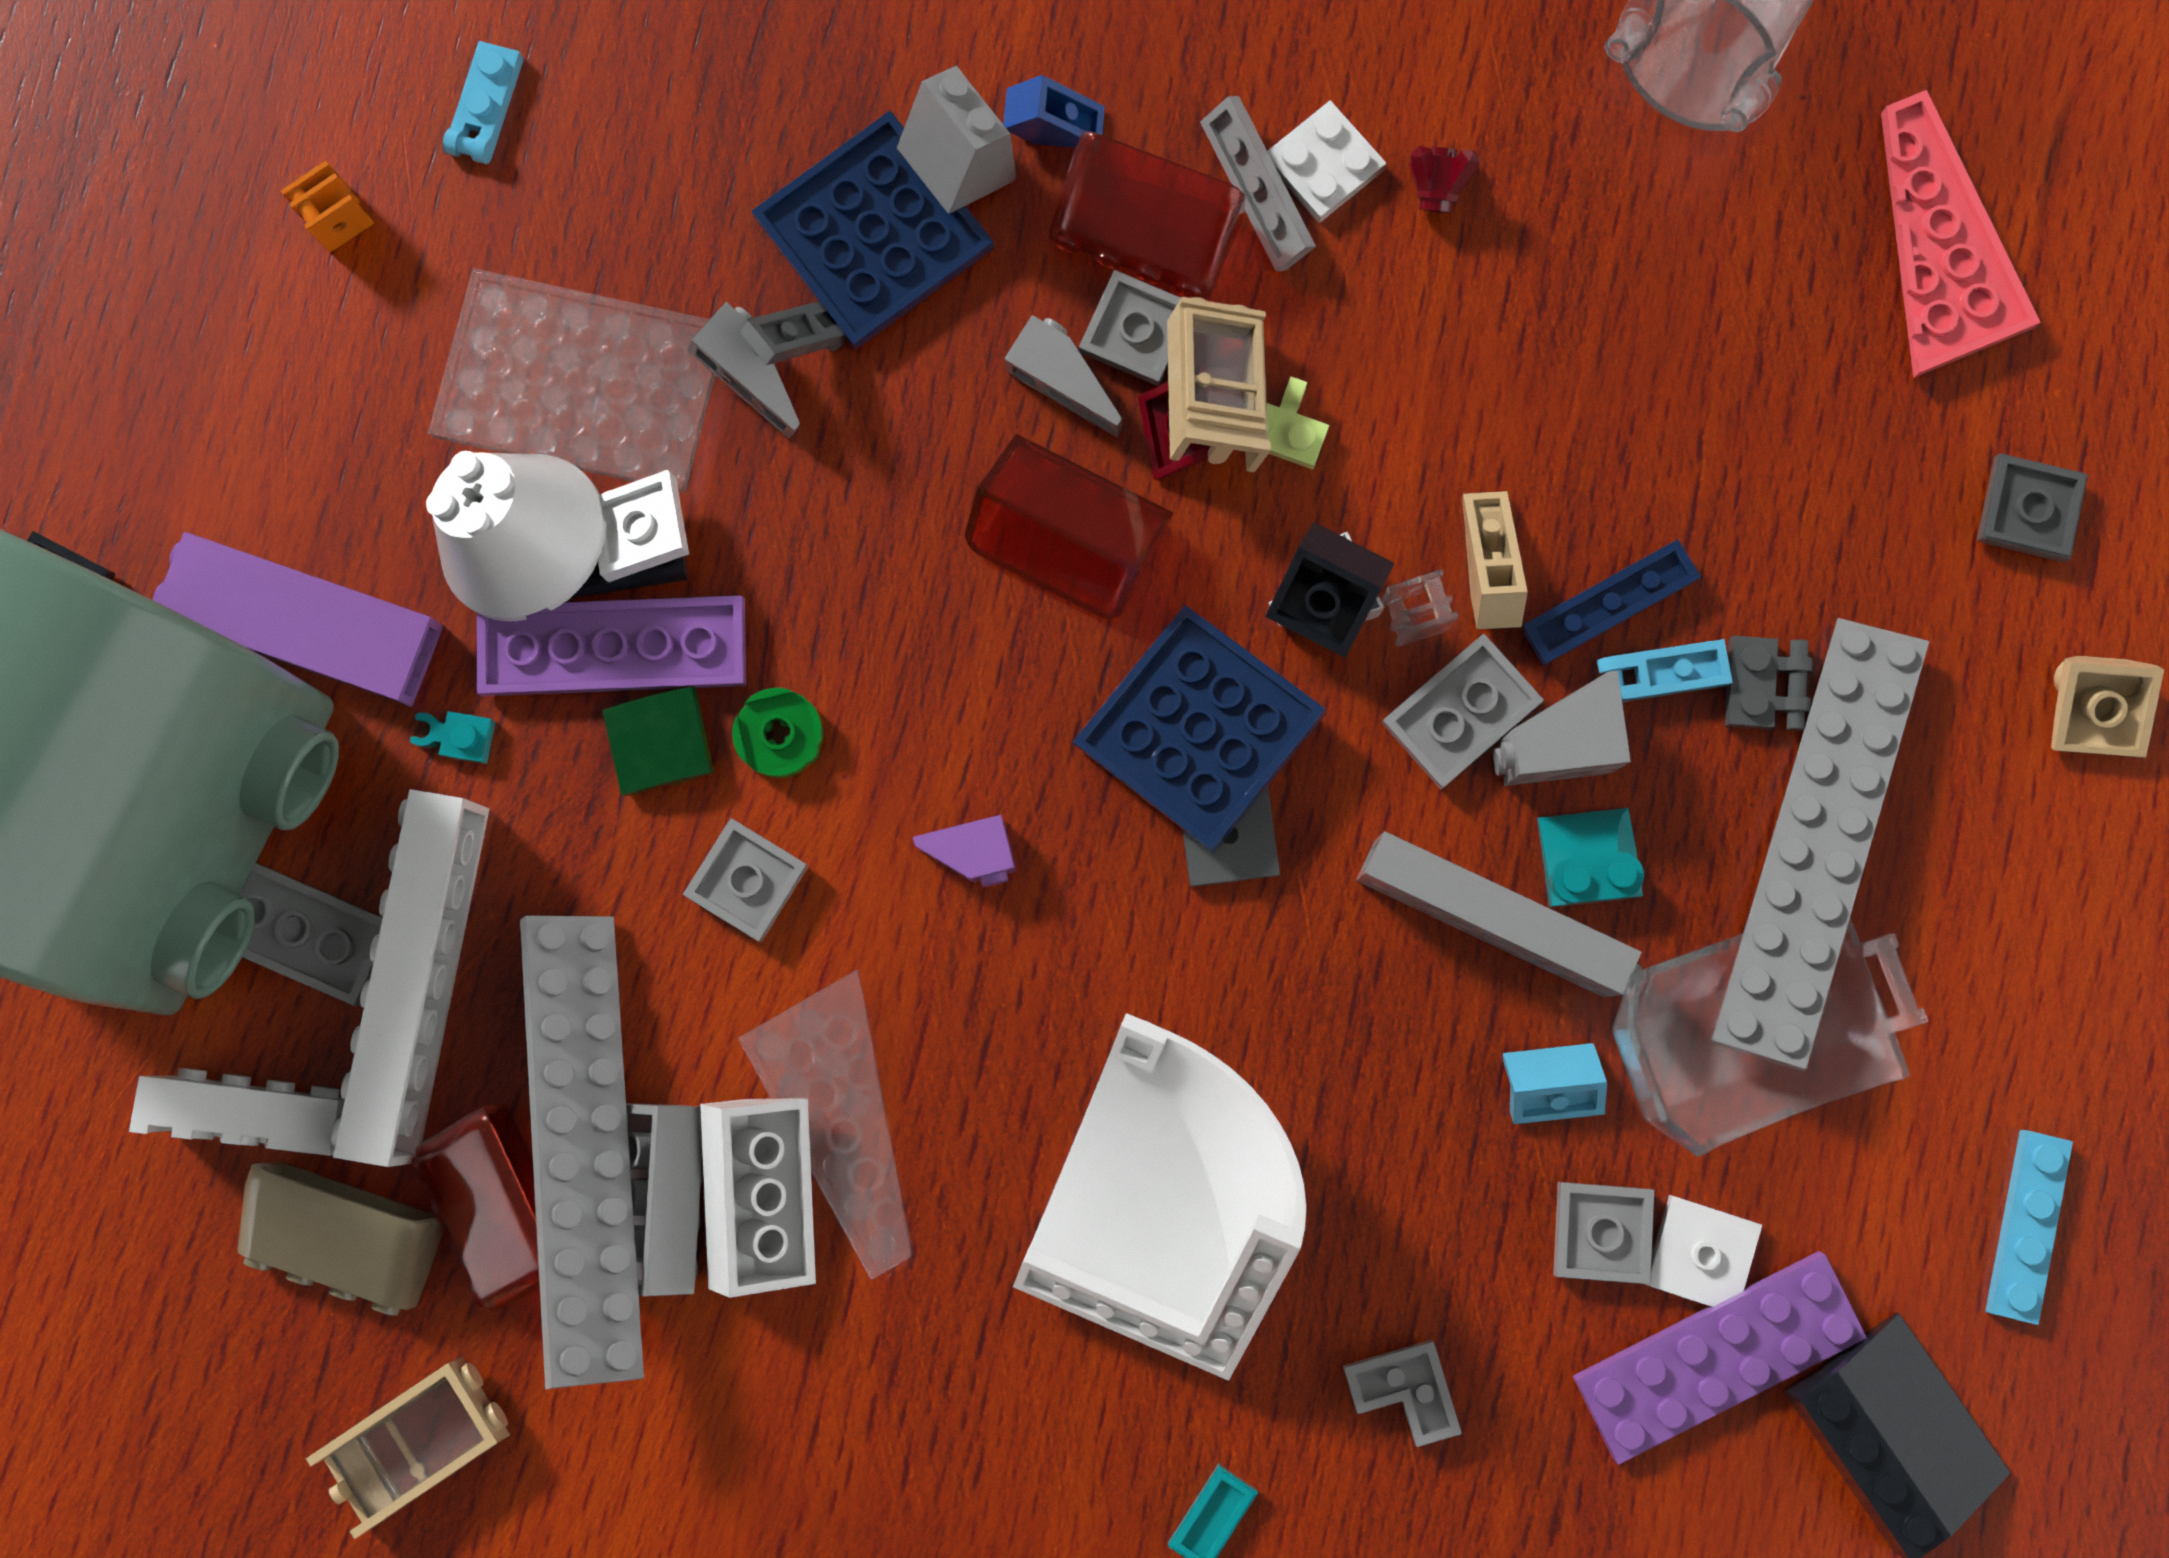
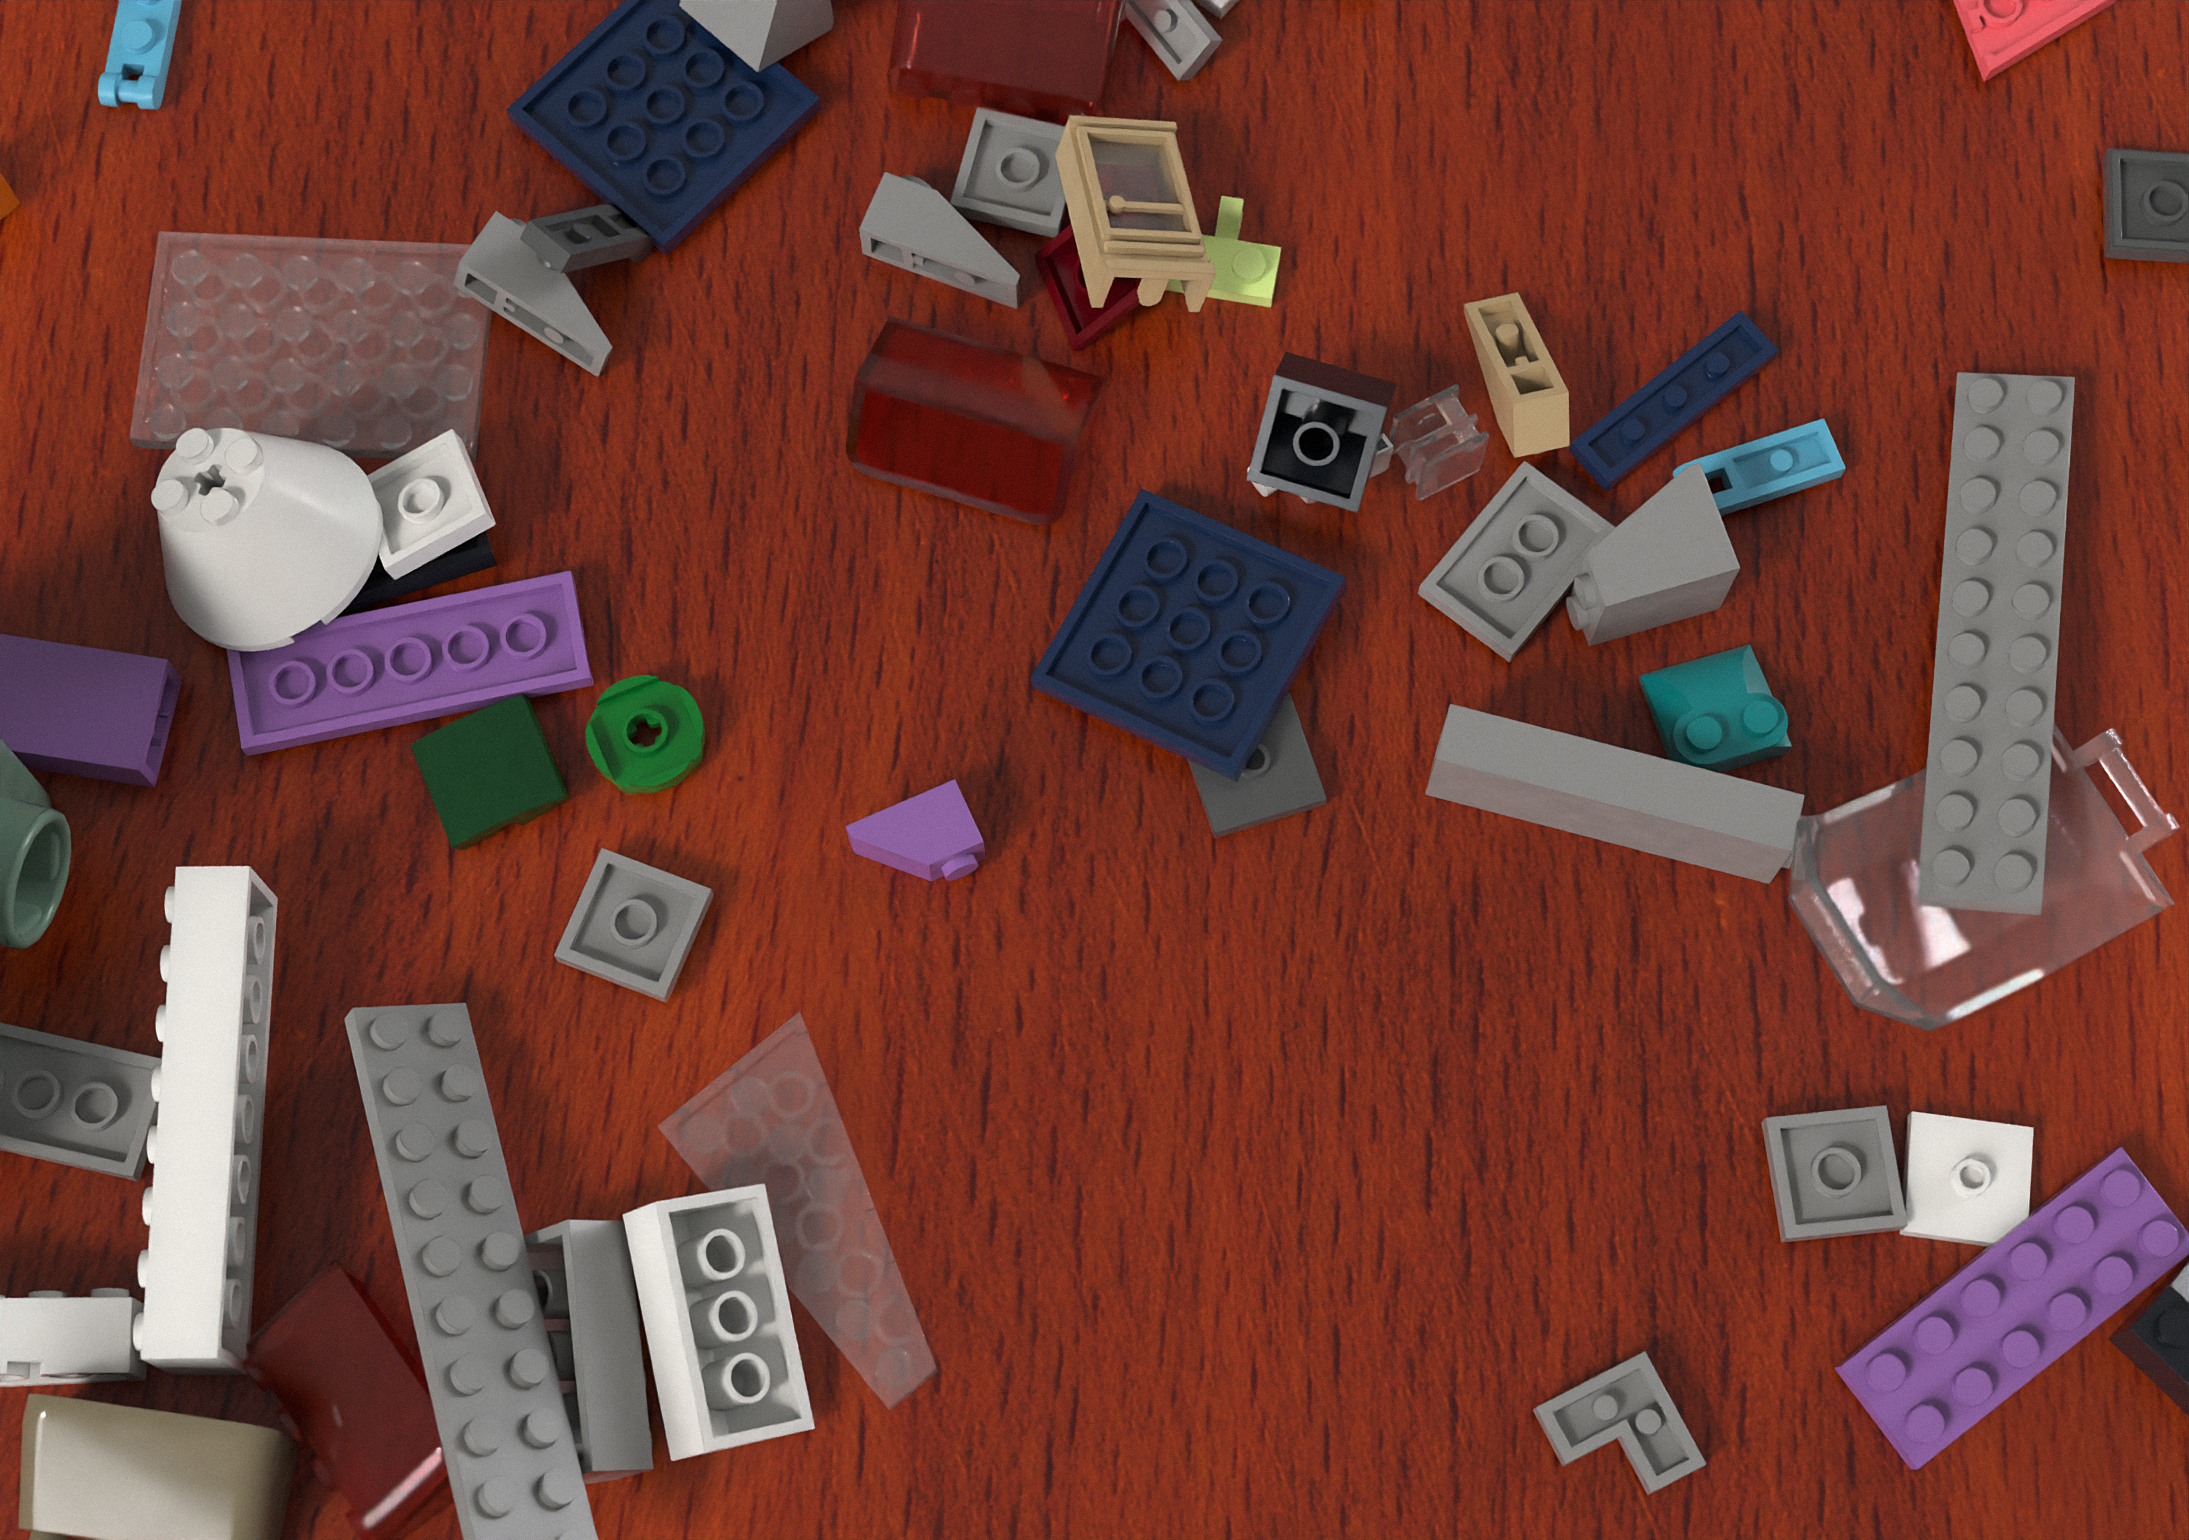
camera: 20 degrees left, 10 degrees down
(460, 737) = (227, 812): teal plate -> none
(1171, 1205) = (1270, 1225): white panel -> none
(1555, 1083) = (1732, 999): medium azure panel -> none
(1754, 670) = (1873, 478): dark grey plate -> none

